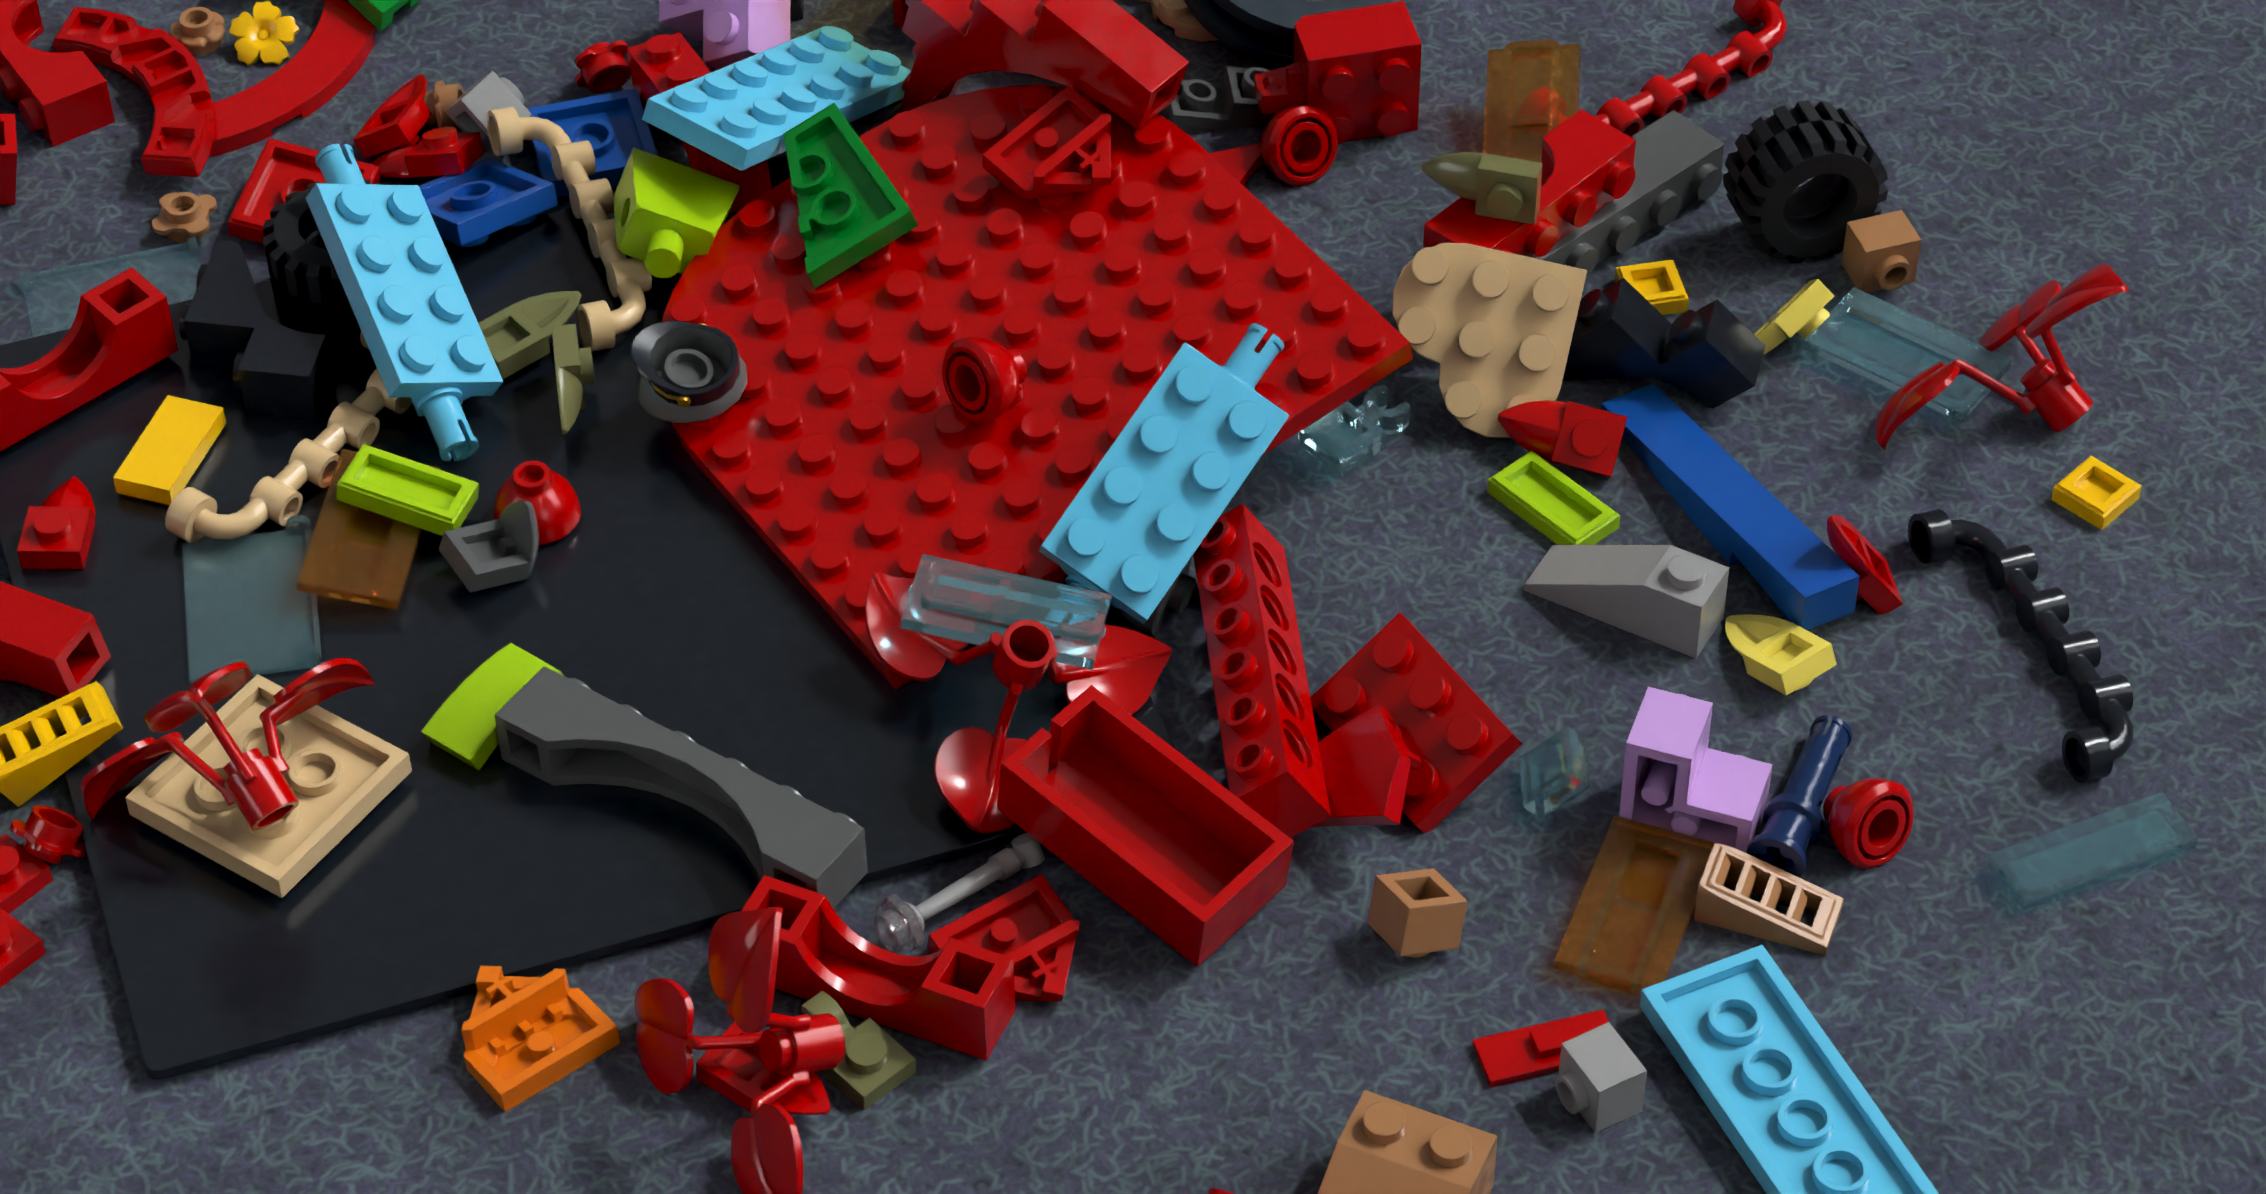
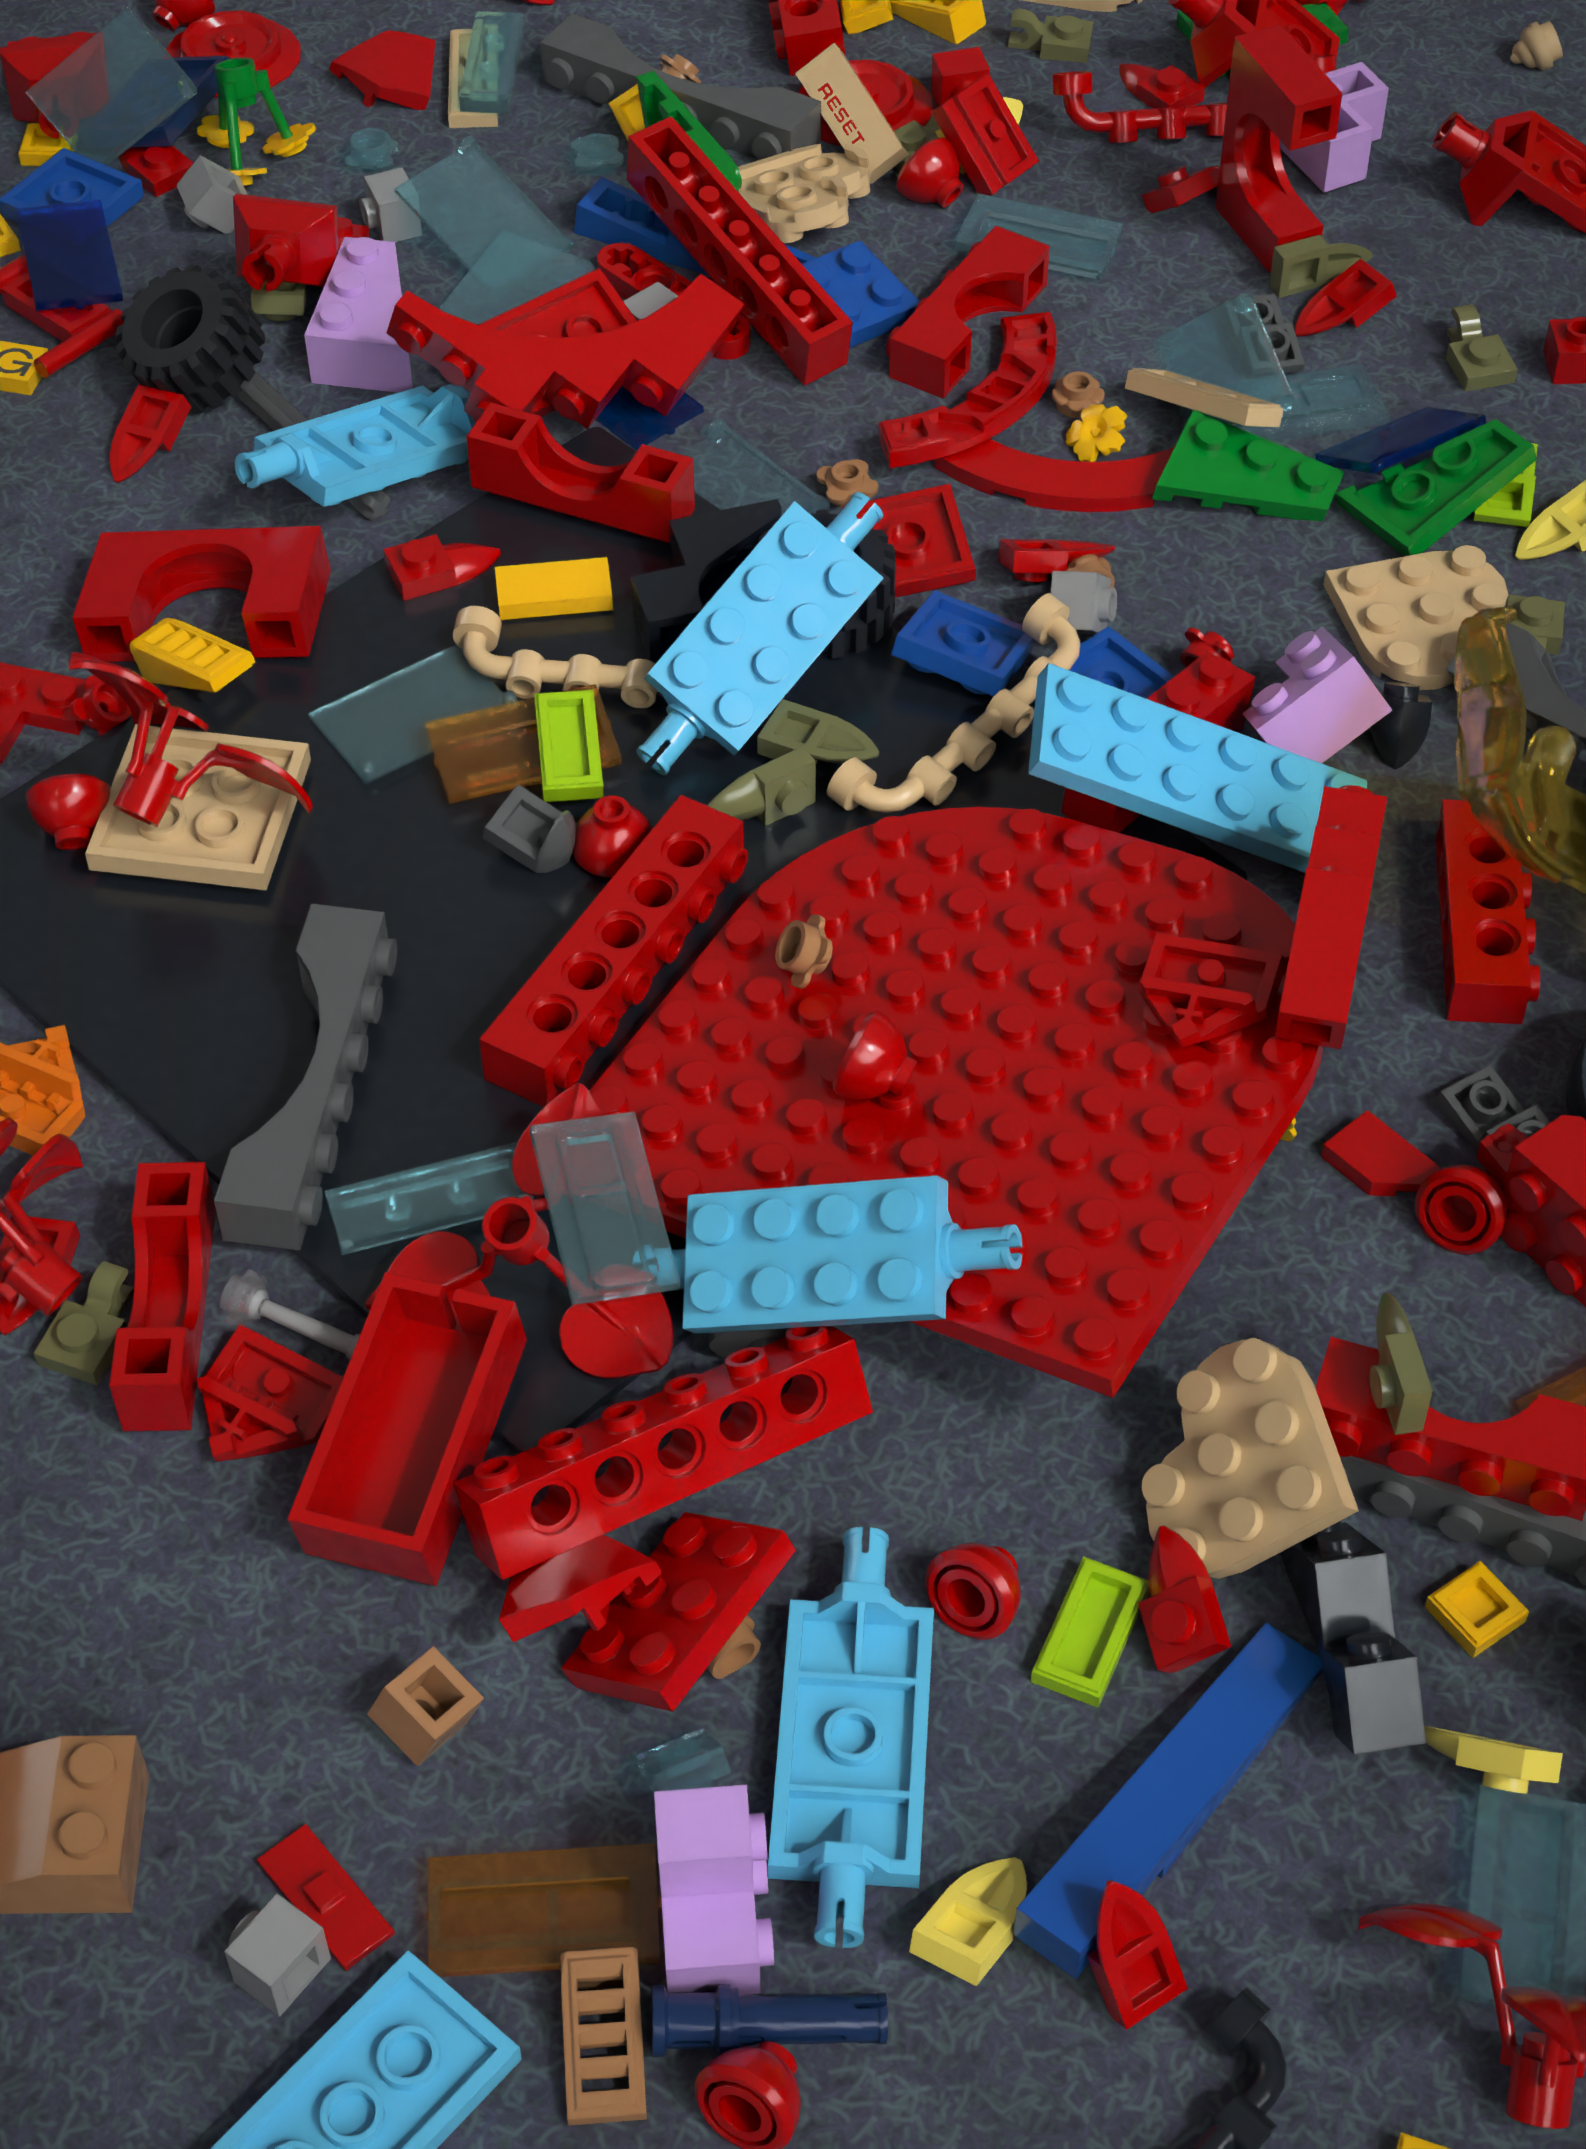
camera: 65 degrees right, 5 degrees up
(203, 882) = (68, 807): none -> red brick
(438, 154) = (1009, 594): red plate -> none
(467, 718) = (399, 899): lime slope -> none
(668, 212) = (987, 765): lime torso -> none
(686, 540) = (613, 952): none -> red brick
(687, 371) = (794, 855): dark grey piece -> none
(797, 400) = (804, 949): none -> medium nougat plate
(841, 196) = (1061, 866): green wing -> none
(878, 754) = (421, 1199): none -> clear light blue tile
(1354, 434) = (1077, 1414): clear light blue plate -> none
(1491, 543) = (974, 1589): none -> red brick
(1572, 658) = (852, 1742): none -> medium azure plate
(1638, 588) = (987, 1751): light grey slope -> none

